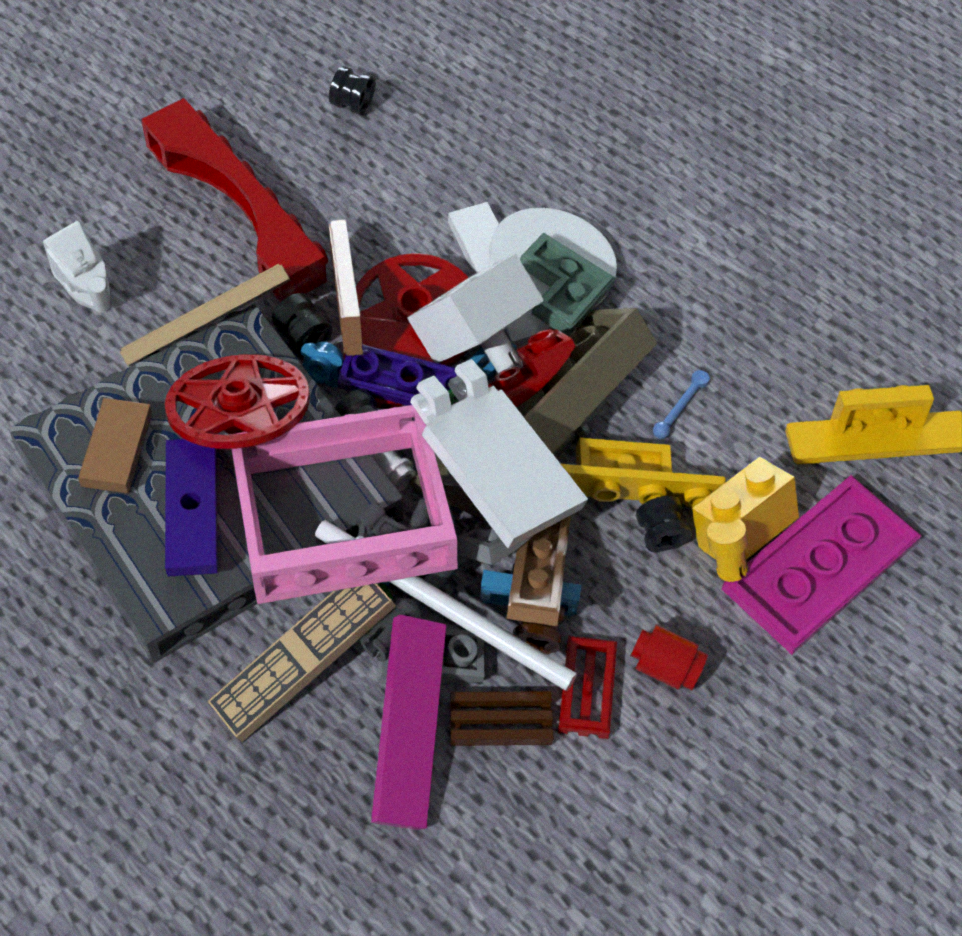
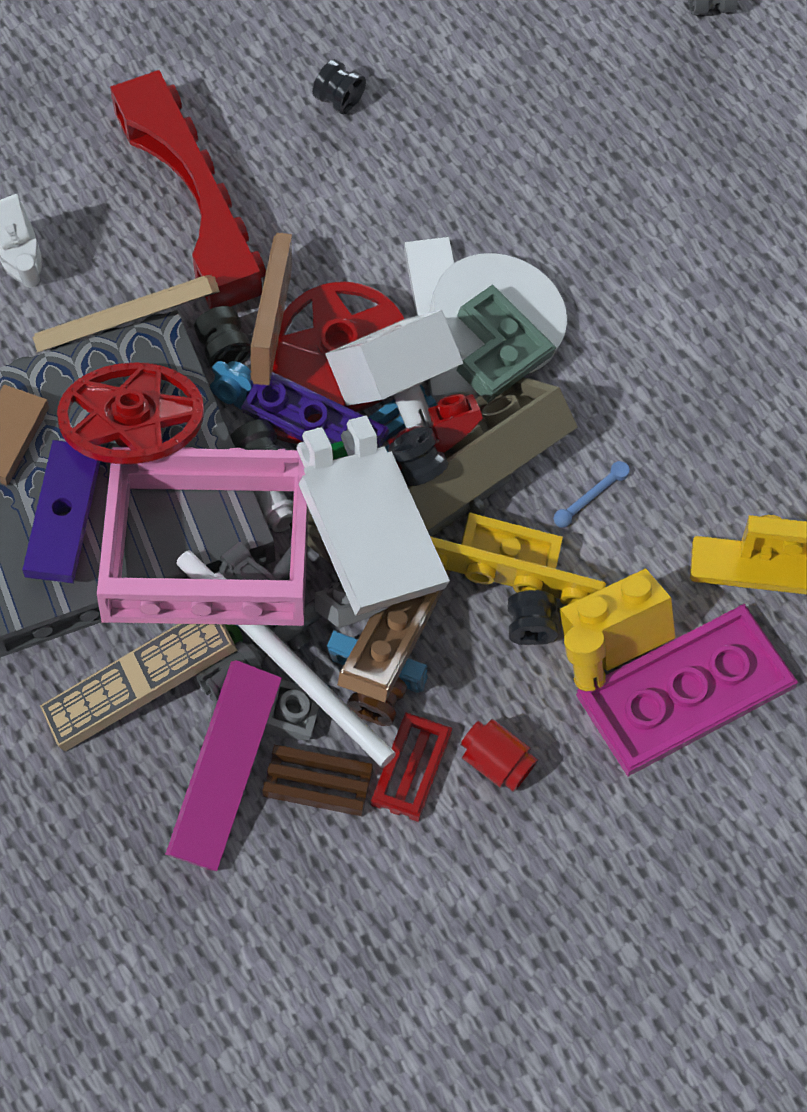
camera: 15 degrees right, 5 degrees up
(526, 389) = (418, 456): none -> black wheel

